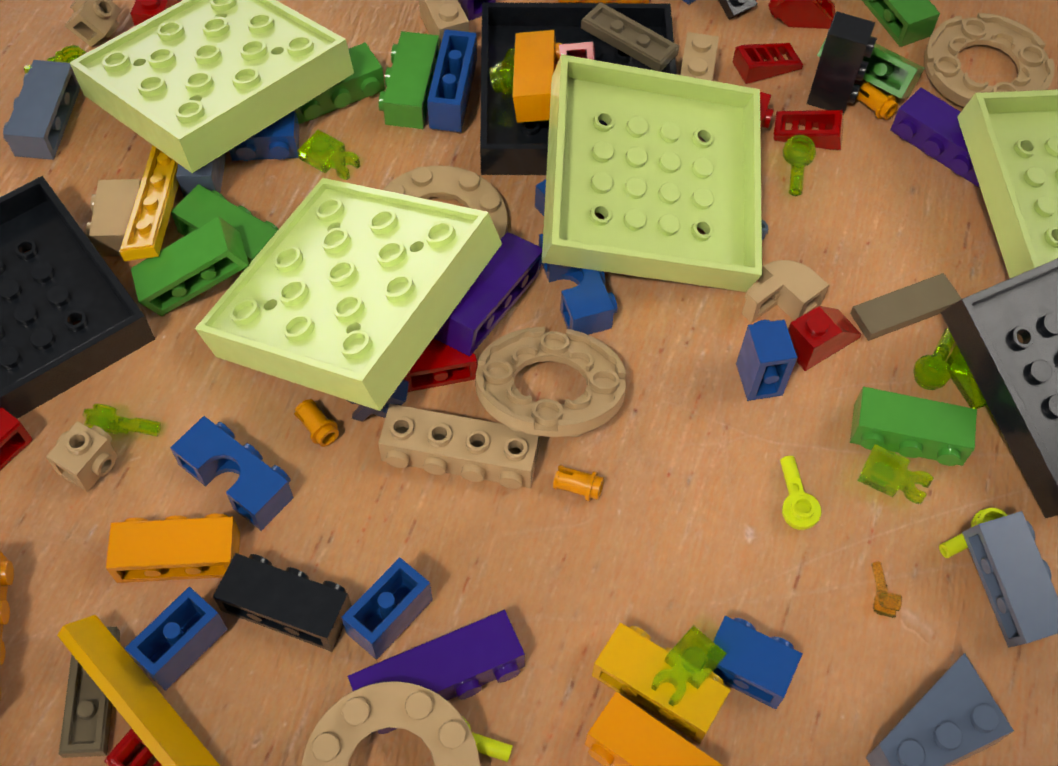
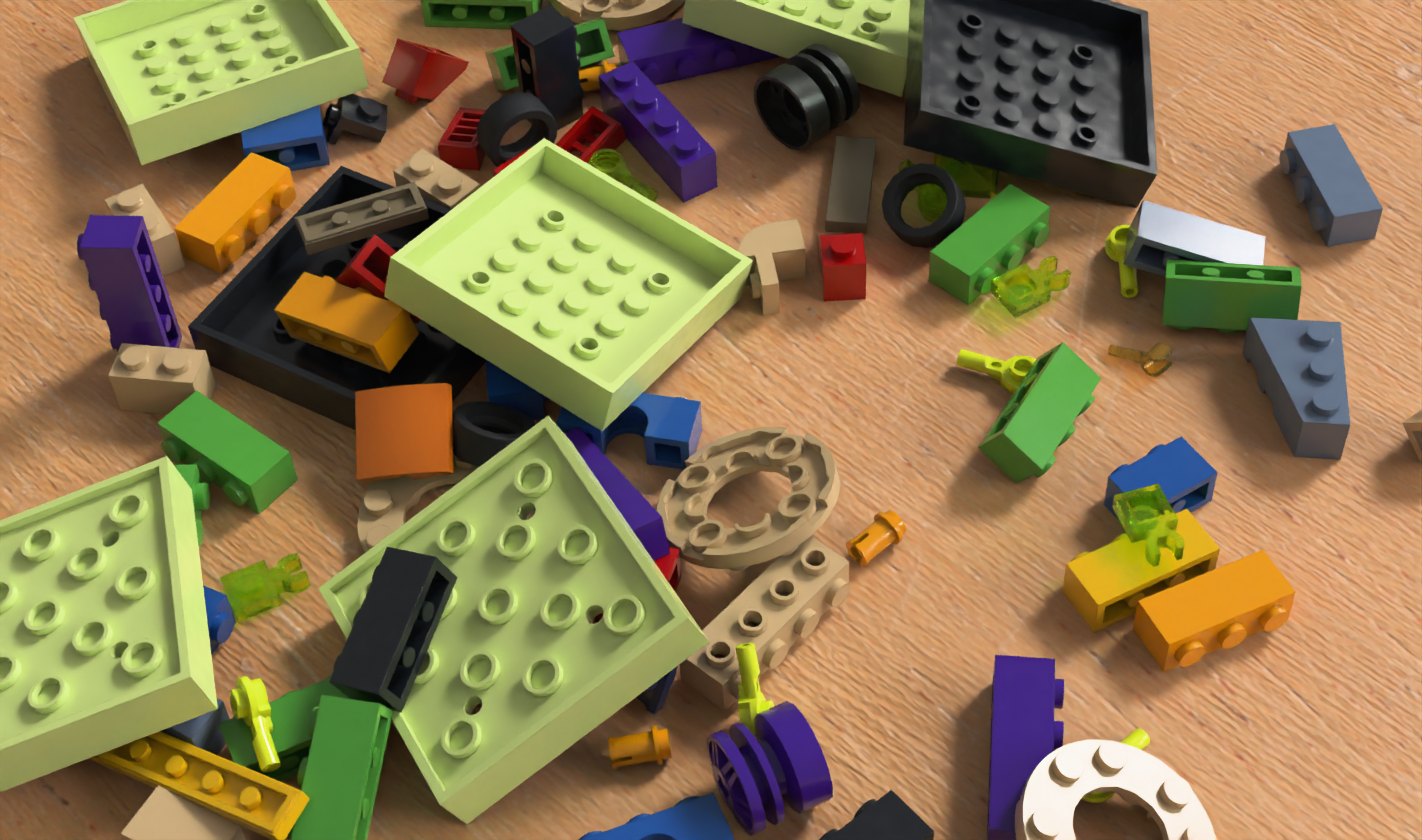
camera: 55 degrees left, 10 degrees down
(211, 190) = (252, 704): none -> neon yellow plate
(293, 228) = (393, 628): none -> black brick
(323, 505) = (776, 765): none -> dark purple wheel
(379, 476) = (750, 698): none -> neon yellow plate
(387, 608) = (928, 763): blue brick -> none
(452, 80) = (272, 407): blue brick -> none
(470, 155) = (404, 432): none -> orange slope
(502, 74) = (316, 354): clear neon green plate -> none
(517, 190) = (485, 429): none -> black tyre
(762, 540) = (1040, 414): none -> bright green brick
(766, 359) = (848, 308): blue brick -> none
(789, 65) = (505, 114): none -> black tyre
(852, 161) = (659, 132): none -> dark purple brick
(902, 339) = (903, 184): none -> black tyre
(962, 233) = (807, 97): none -> pearl dark grey wheel
(987, 629) = (1228, 294): none -> bright green brick

